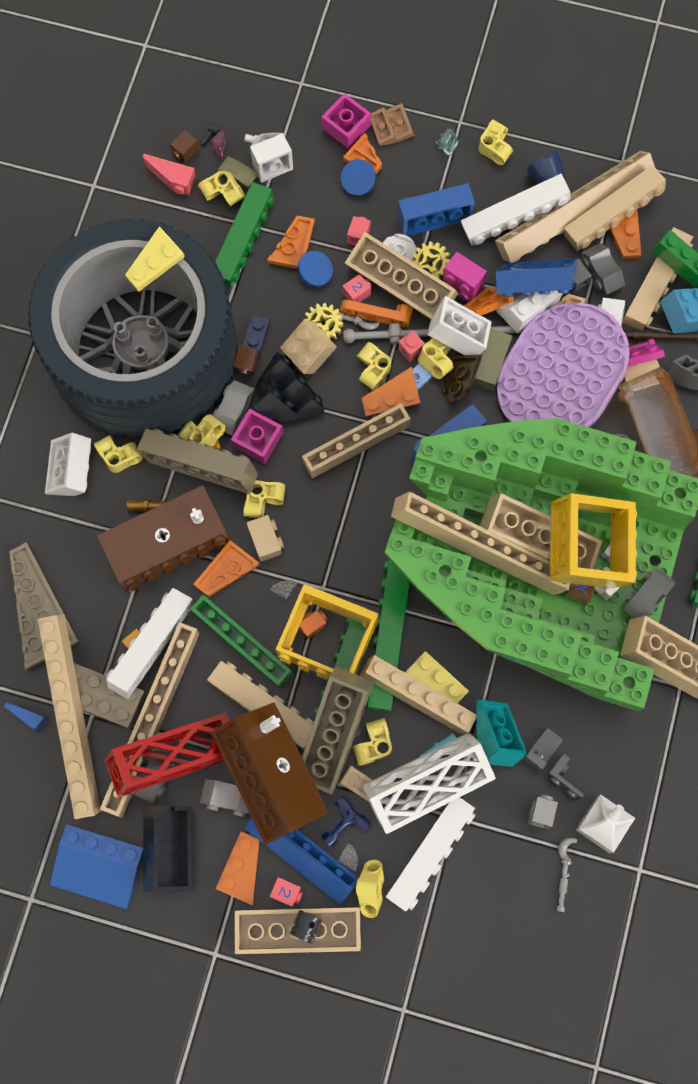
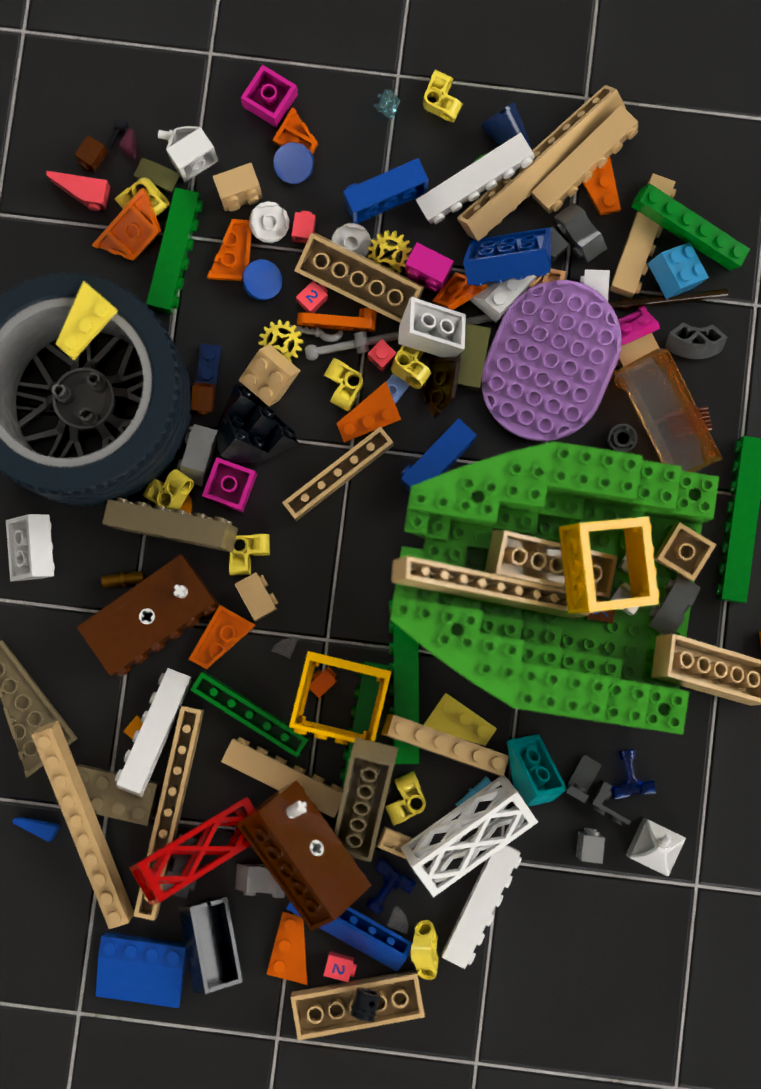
camera: 10 degrees left, 10 degrees up
(127, 454) = (71, 524): light yellow piece -> none
(208, 211) = (131, 229): none -> orange wing
(307, 189) = (238, 187): none -> tan brick
(329, 223) = (269, 222): none -> white tile
(391, 125) = (320, 91): medium nougat slope -> none
(562, 848) = (620, 889): light grey piece -> none
(590, 763) = (632, 784): none -> clear blue bar
(664, 547) = (684, 551): none -> tan brick

